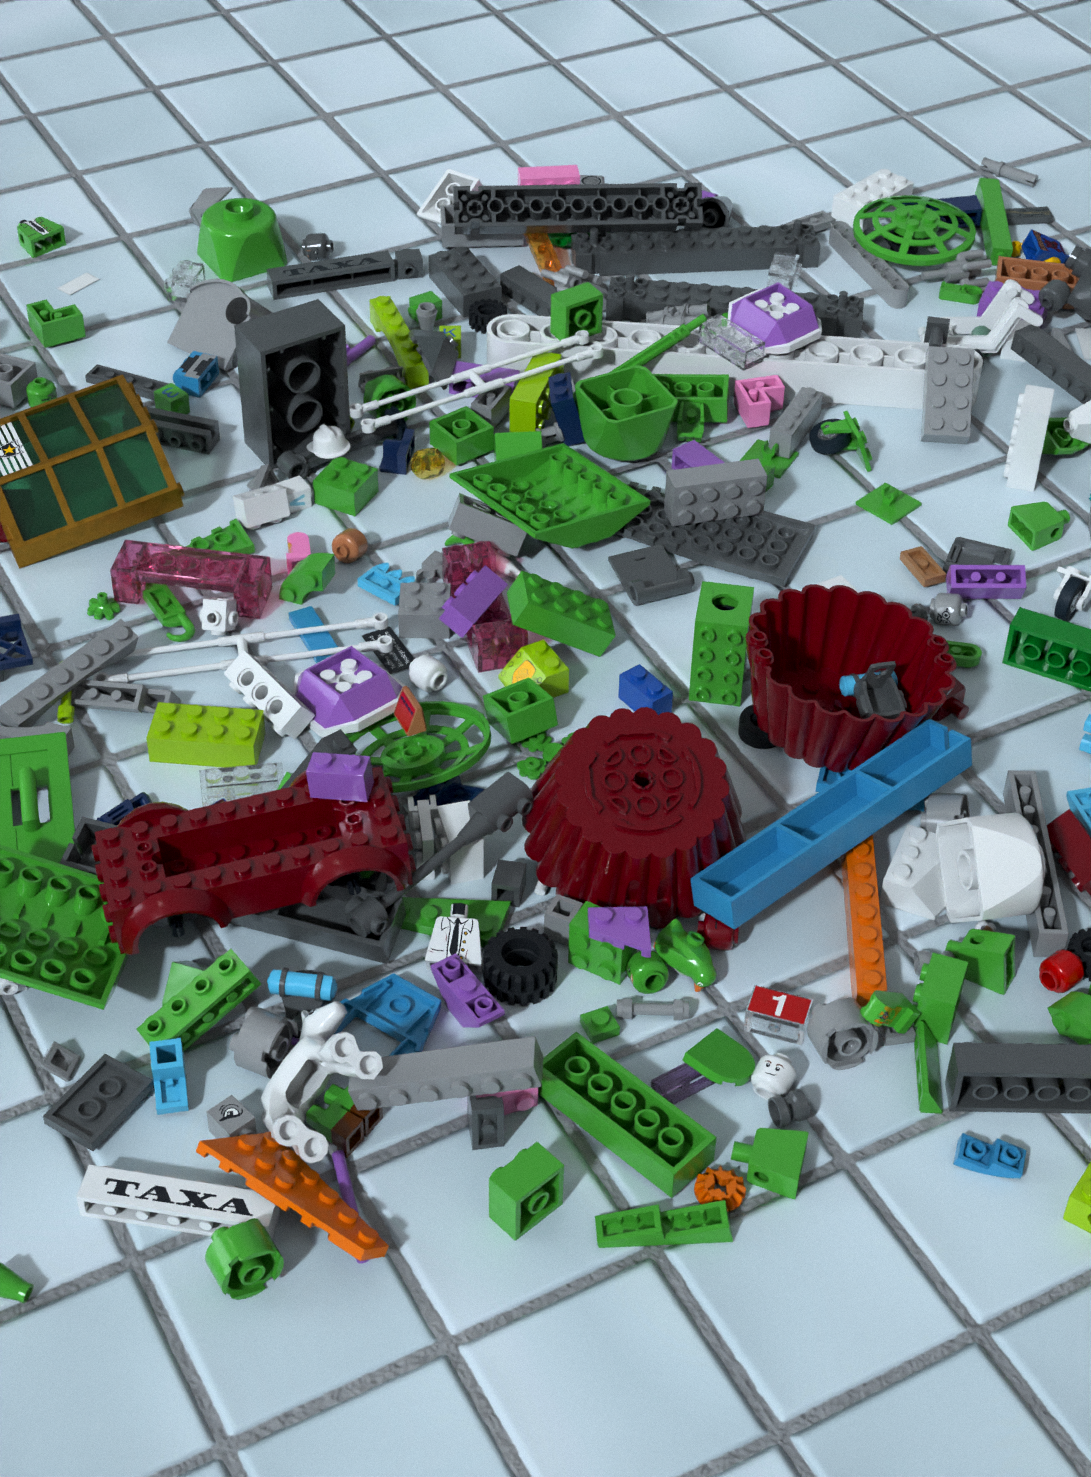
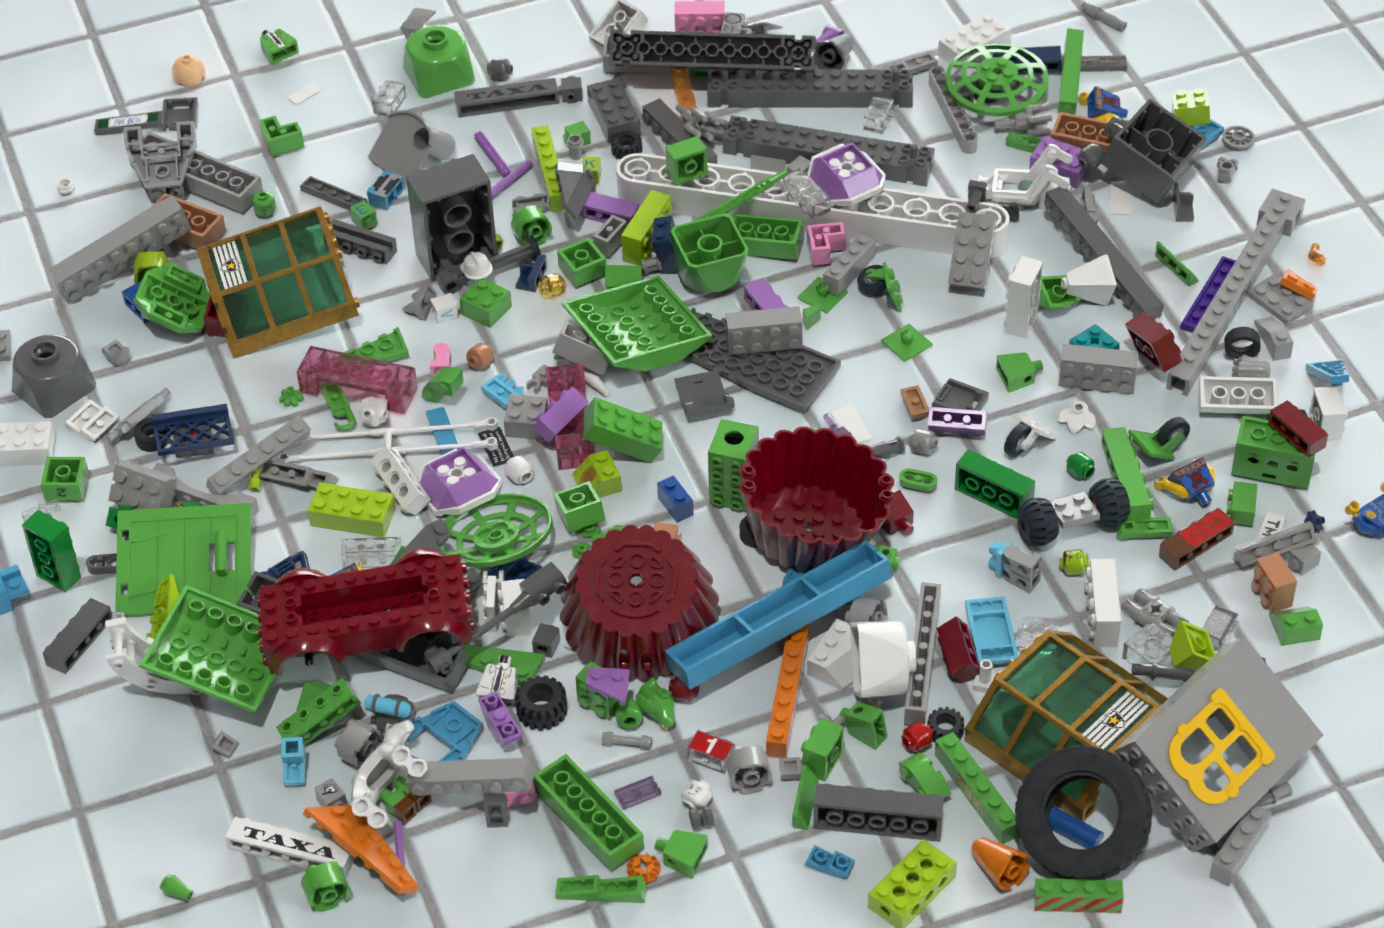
camera: 10 degrees right, 5 degrees up
(98, 1102) = (246, 774): dark grey plate -> none
(261, 506) = (418, 318): white brick -> none
(340, 777) = (427, 562): medium lavender brick -> none
(369, 425) = (687, 182): white bar -> none
(409, 713) = (497, 504): slope -> none
(526, 1190) = (512, 858): bright green brick -> none
(558, 917) = (572, 668): light grey brick -> none
(599, 1024) = (588, 748): bright green plate -> none
(678, 314) = (776, 159): light grey pin -> none
(690, 421) = (765, 260): bright green hand -> none
(721, 1059) = (663, 780): bright green tile -> none
(875, 691) = (842, 513): dark grey piece -> none
(890, 1010) = (783, 756): bright green leg -> none

